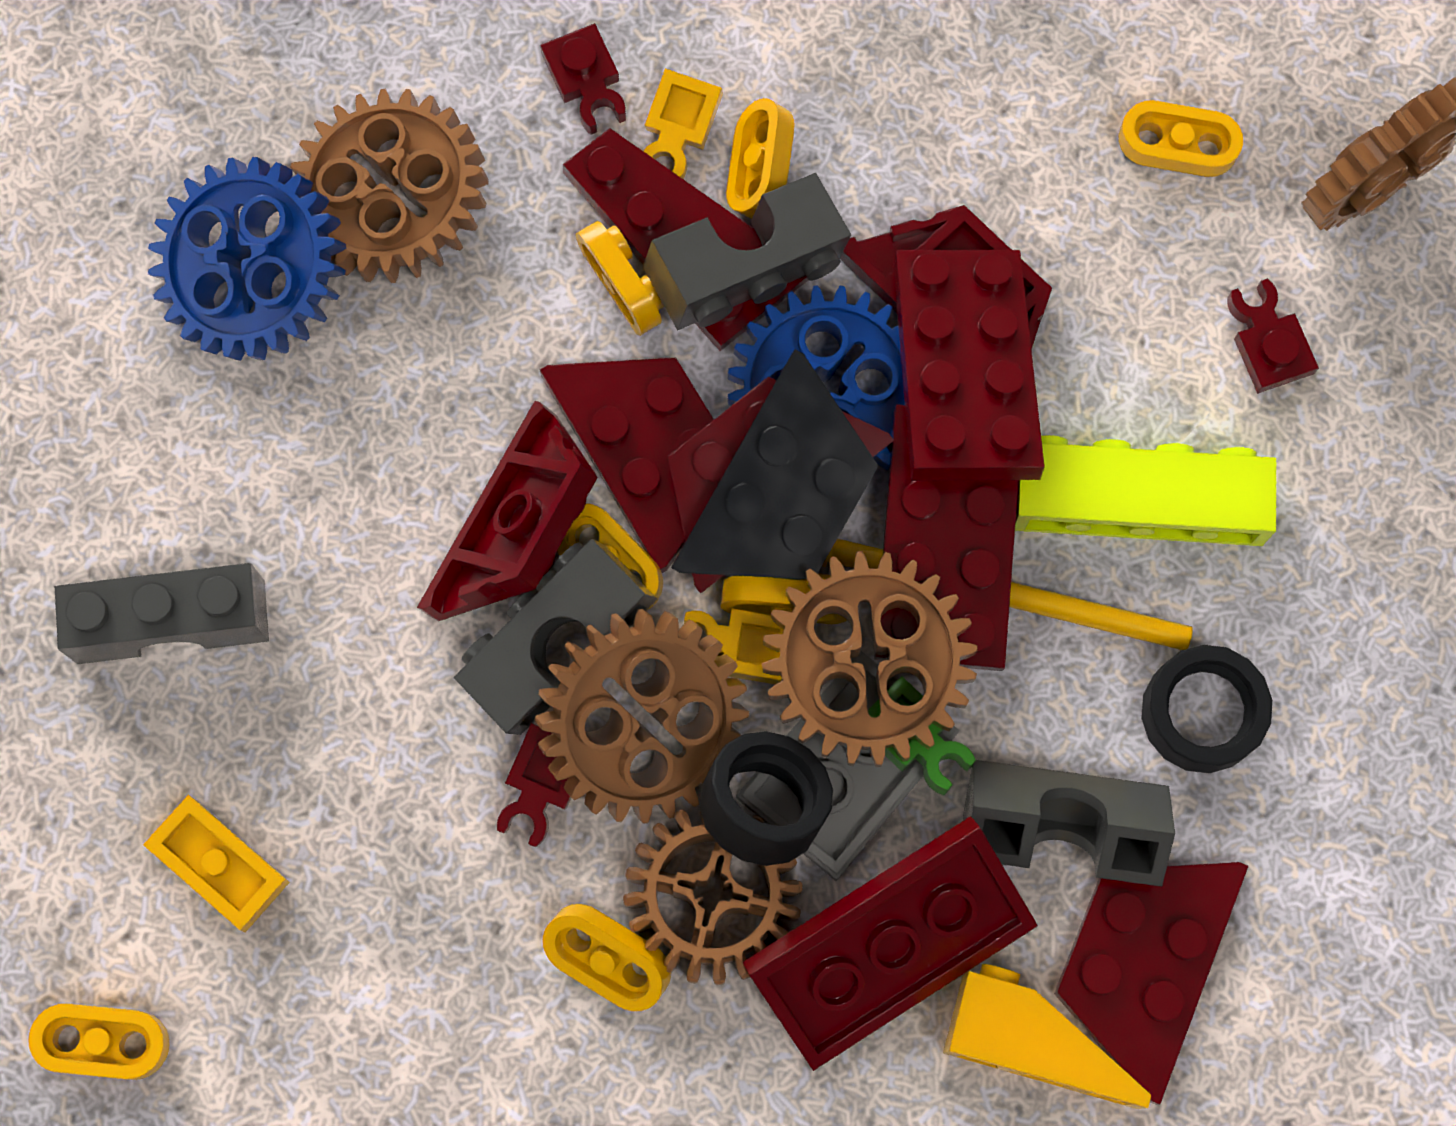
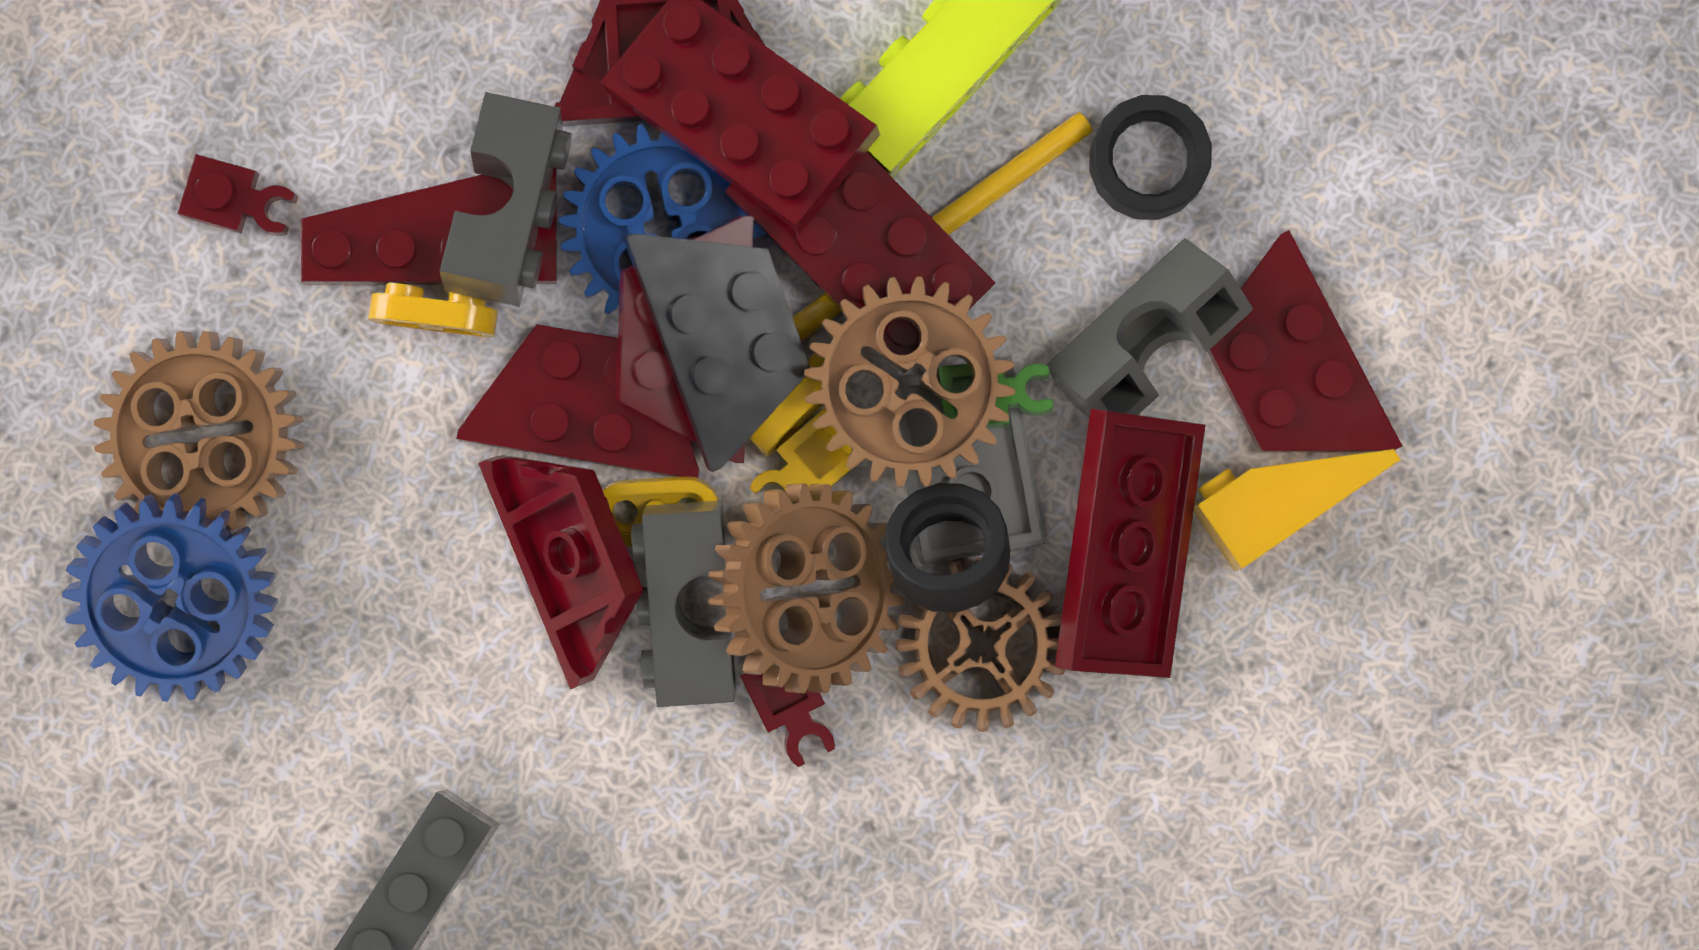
camera: 45 degrees left, 10 degrees up
(607, 959) = (962, 763): yellow plate -> none
(681, 117) = (336, 150): yellow plate -> none
(759, 154) = (425, 119): yellow plate -> none

